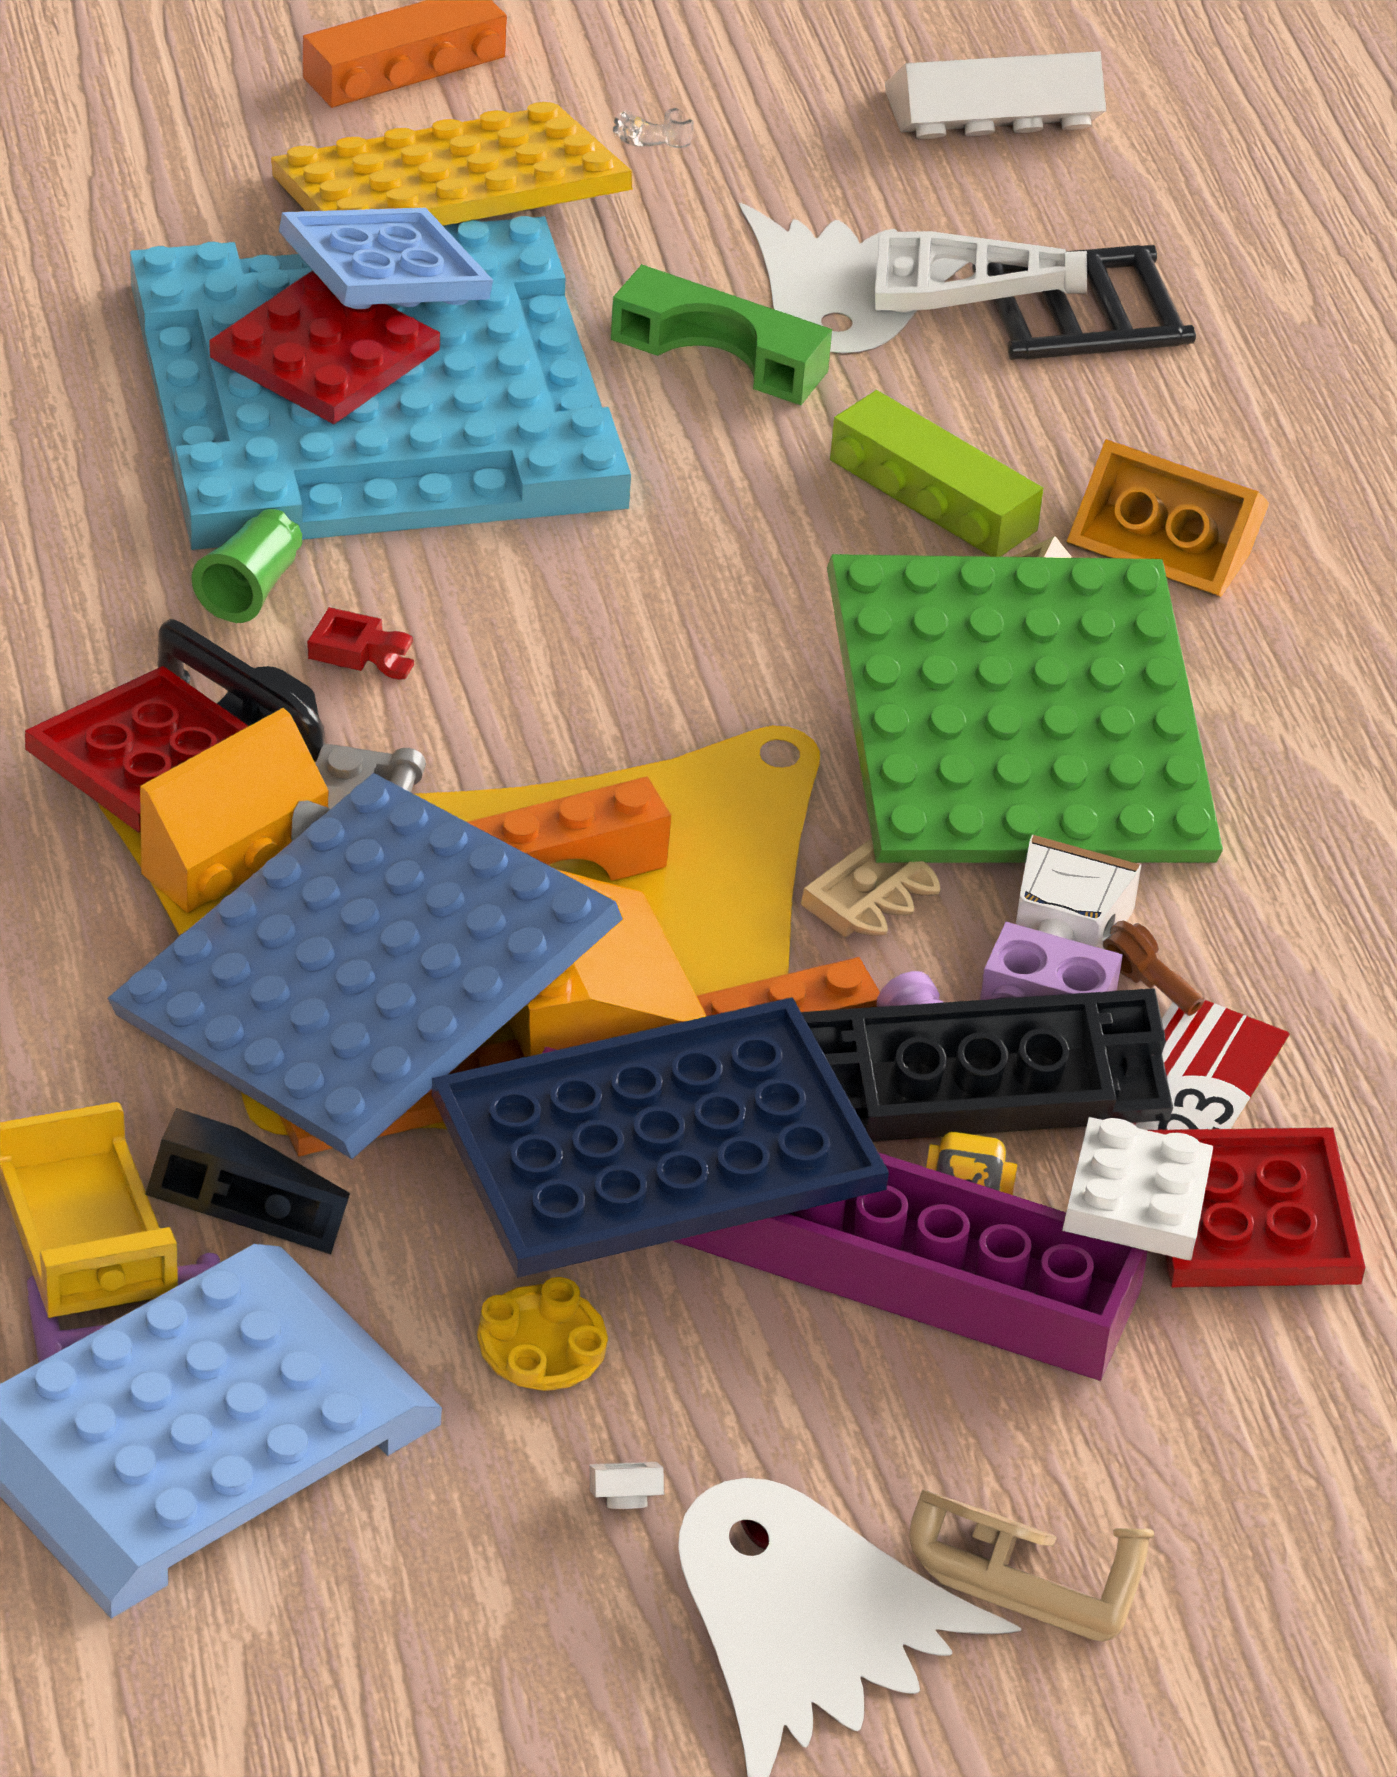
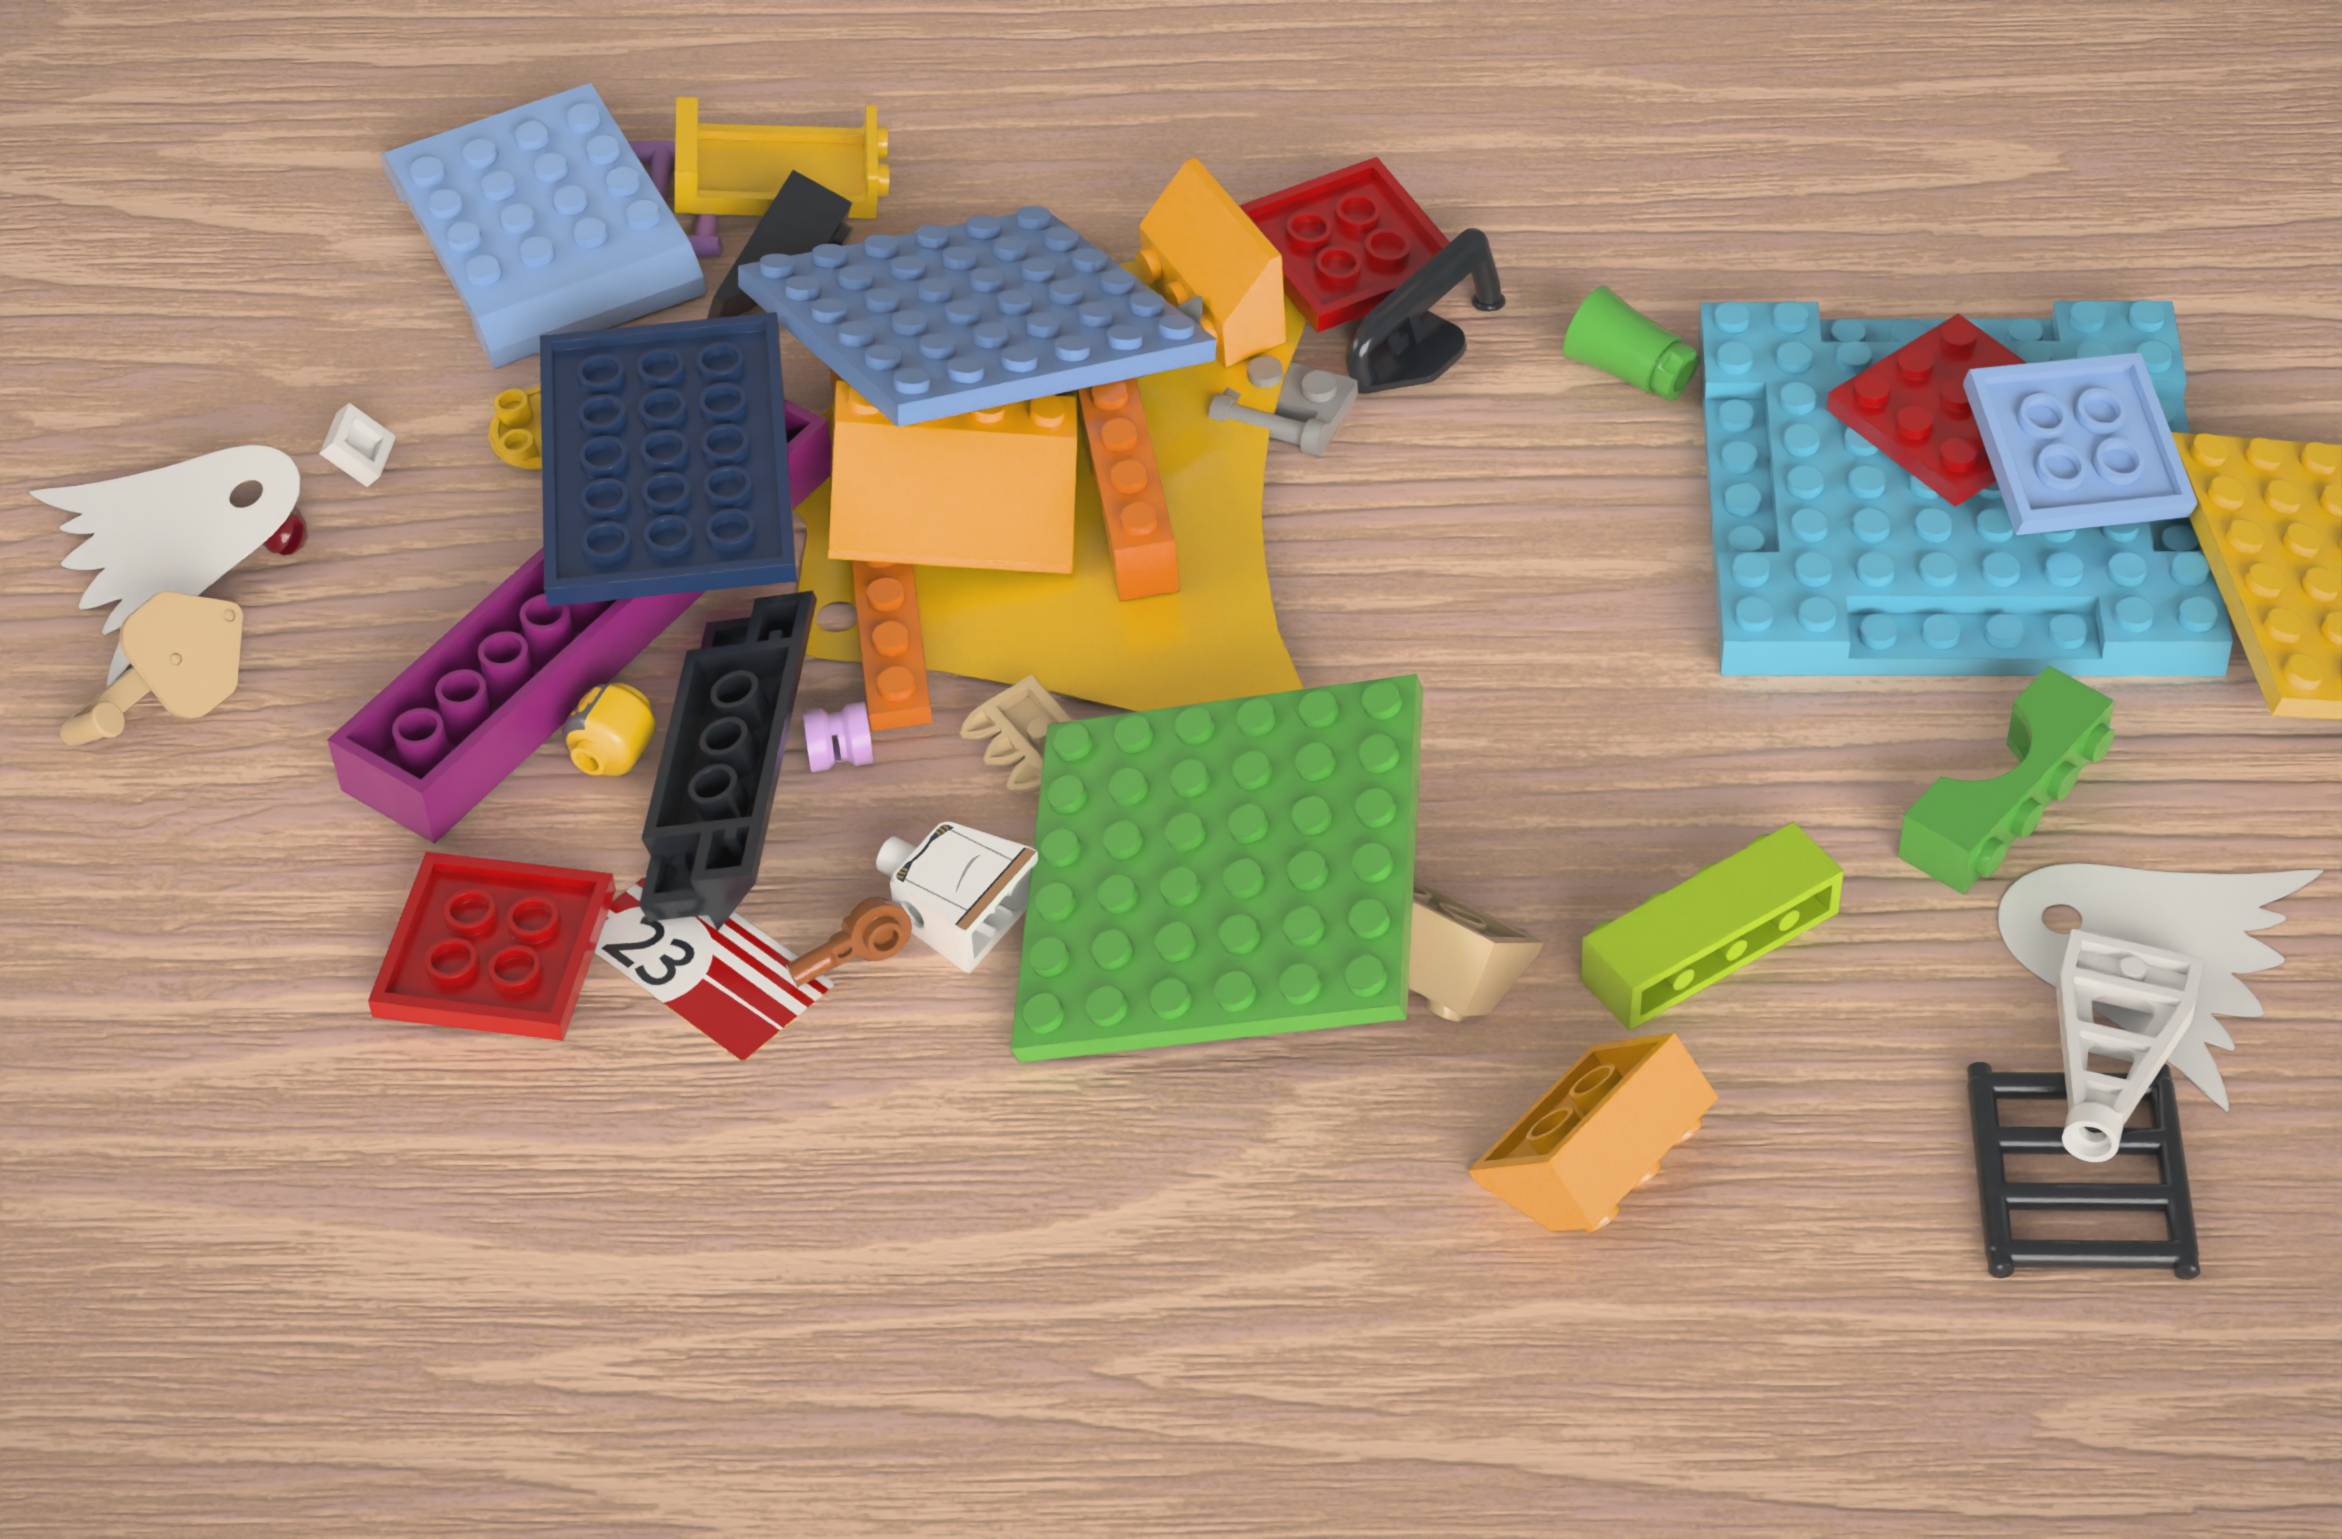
camera: 110 degrees right, 5 degrees up
(355, 638) = (1498, 412): red plate -> none
(1044, 964) = (834, 851): lavender brick -> none
(1139, 1188) = (496, 807): white plate -> none

